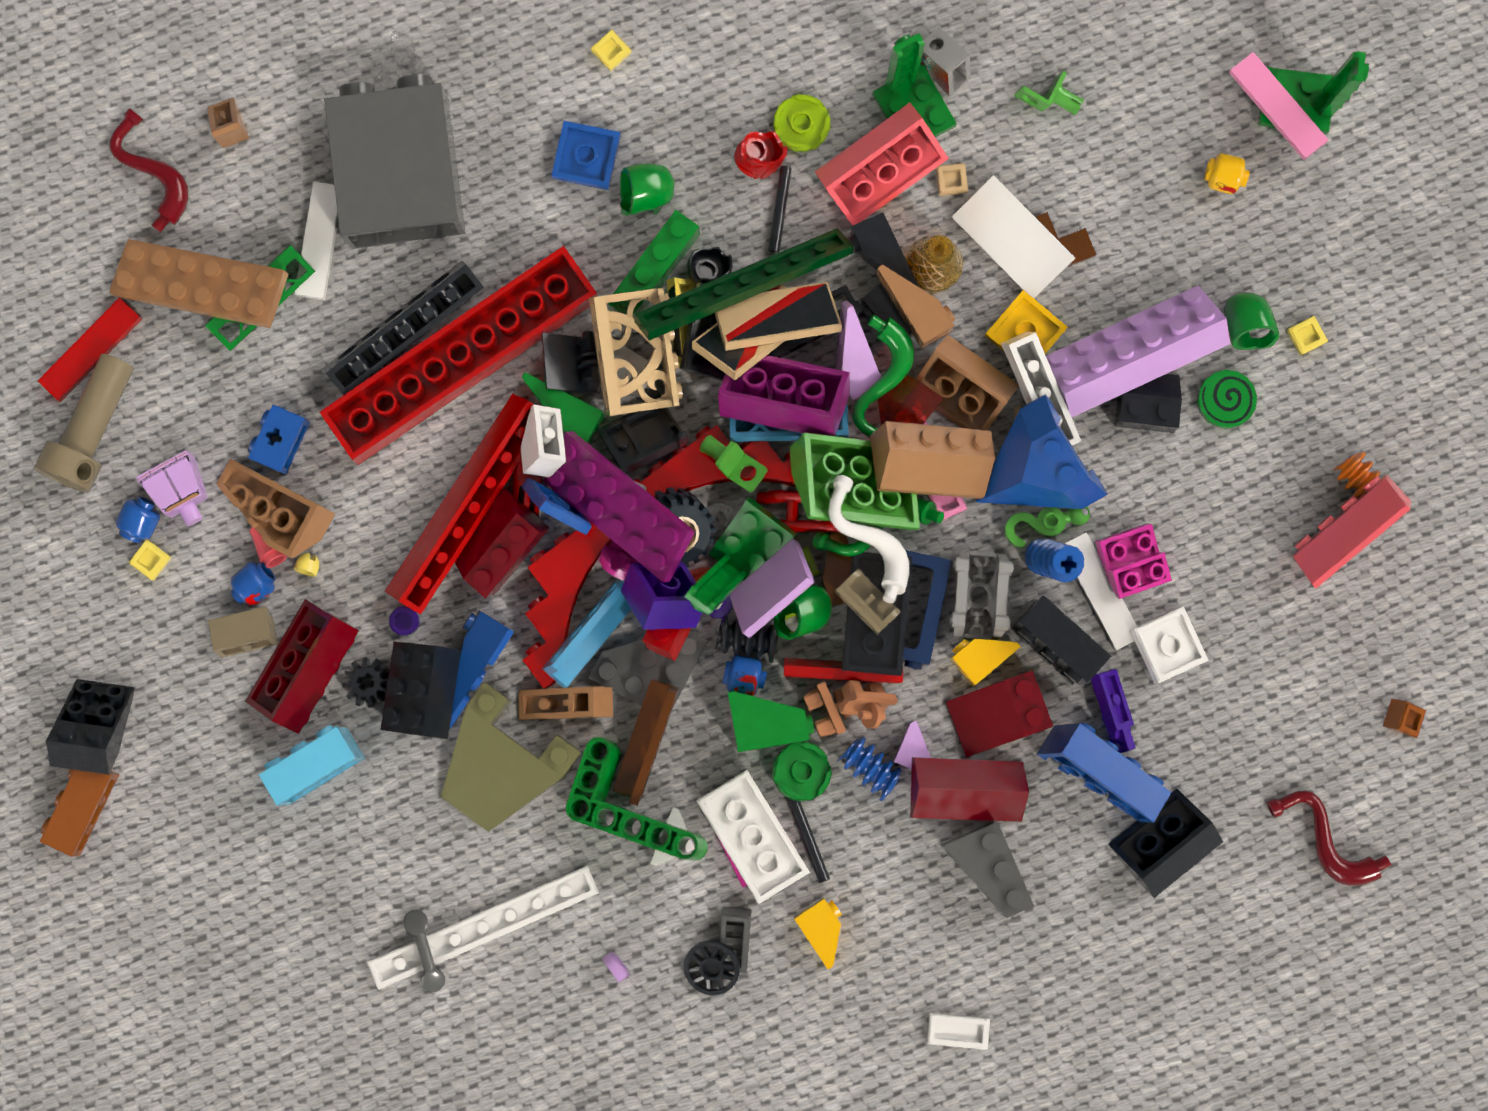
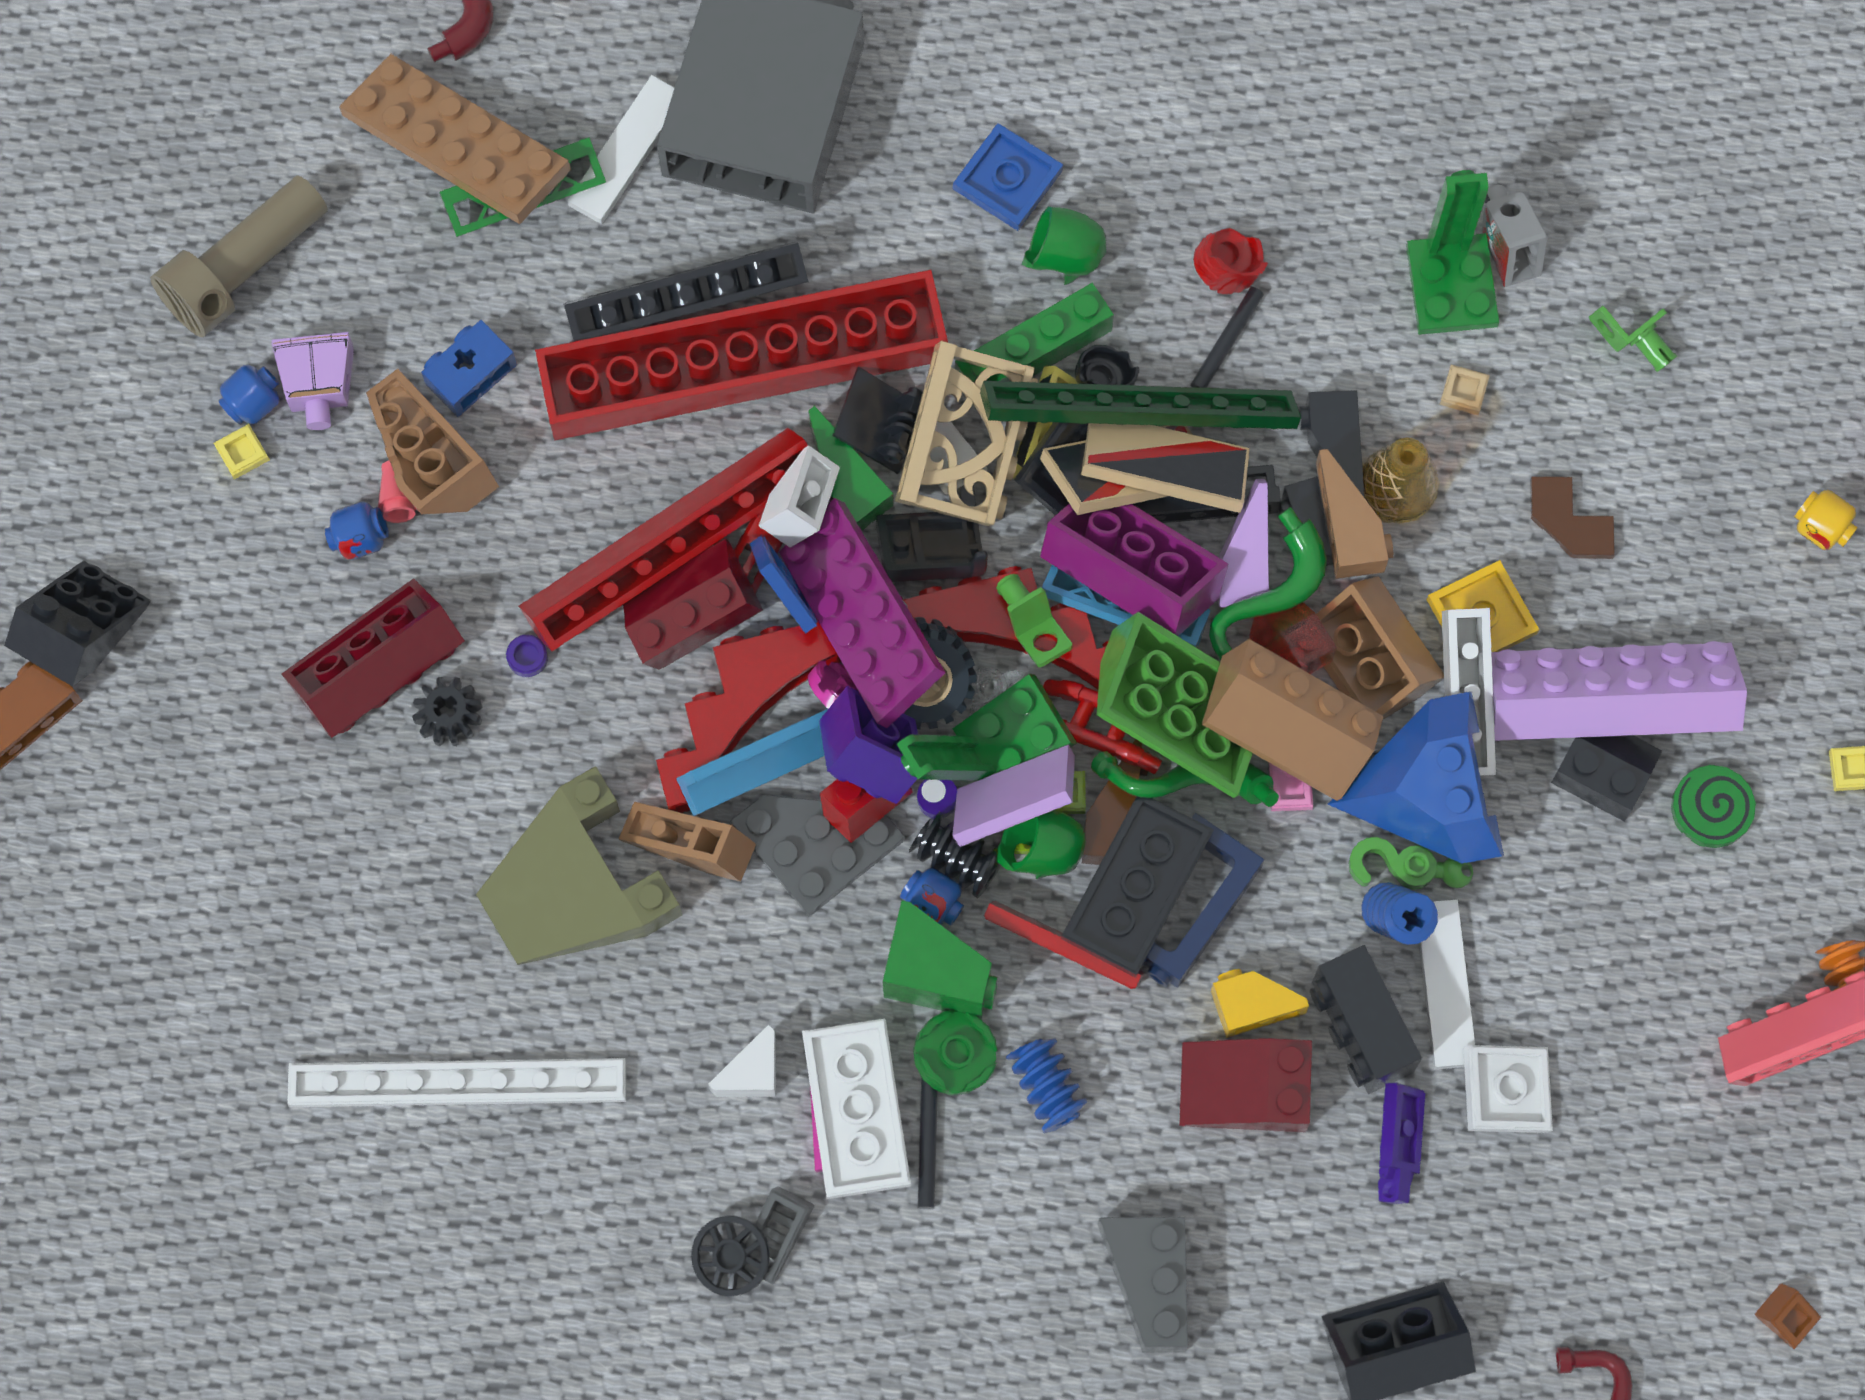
camera: 20 degrees right, 10 degrees down
(85, 352) = (272, 170): red tile -> none
(243, 632) = (317, 586): dark tan hinge -> none
(307, 566) = (434, 537): light yellow hinge -> none
(311, 765) = (330, 781): medium azure brick -> none
(416, 925) = (364, 1118): dark grey bar -> none
(420, 690) = (510, 744): black brick -> none
(479, 646) = (607, 724): blue wedge -> none
(611, 50) = (1094, 63): light yellow tile -> none
(616, 966) = (607, 1203): lavender tile -> none
(623, 818) = (699, 1012): green beam -> none
(645, 740) = (770, 928): reddish brown fence -> none
(794, 126) = (1296, 258): lime tile -> none
(821, 697) = (1022, 1006): nougat hips -> none
(821, 929) = (896, 1264): yellow slope -> none
(866, 703) = (1079, 998): nougat hips -> none
(867, 601) = (1130, 859): dark tan hinge -> none
(881, 164) = (1380, 332): coral slope -> none
(892, 551) = (1189, 806): white animal -> none
(911, 746) = (1111, 1089): lavender slope -> none
(968, 789) = (1163, 1163): dark red slope -> none
(996, 595) = (1268, 904): light grey piece -> none
(1013, 237) = (1514, 491): white tile -> none
(1105, 770) = (1357, 1213): wedge -> none
(1133, 561) = (1504, 960): dark pink slope -> none
(1247, 313) = (1778, 702): green piece -> none

